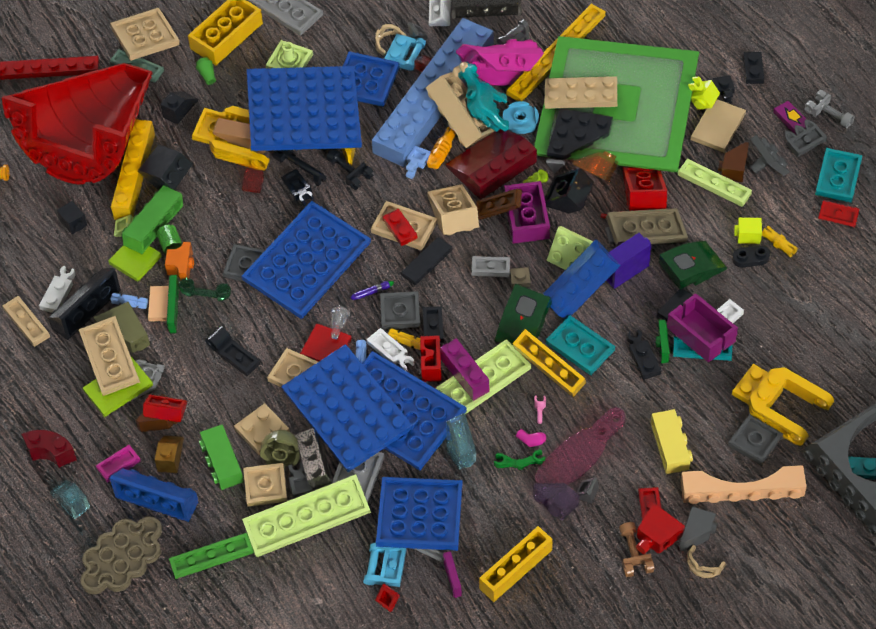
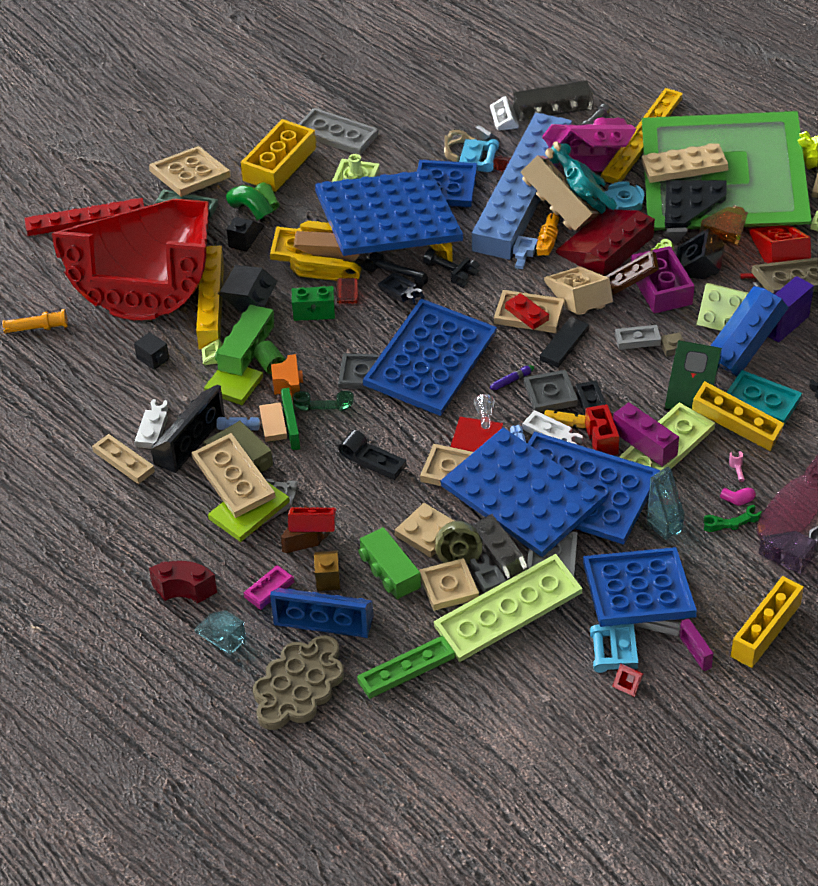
camera: 10 degrees left, 10 degrees down
(190, 73) = (251, 198): none -> green cylinder
(219, 190) = (313, 303): none -> green brick

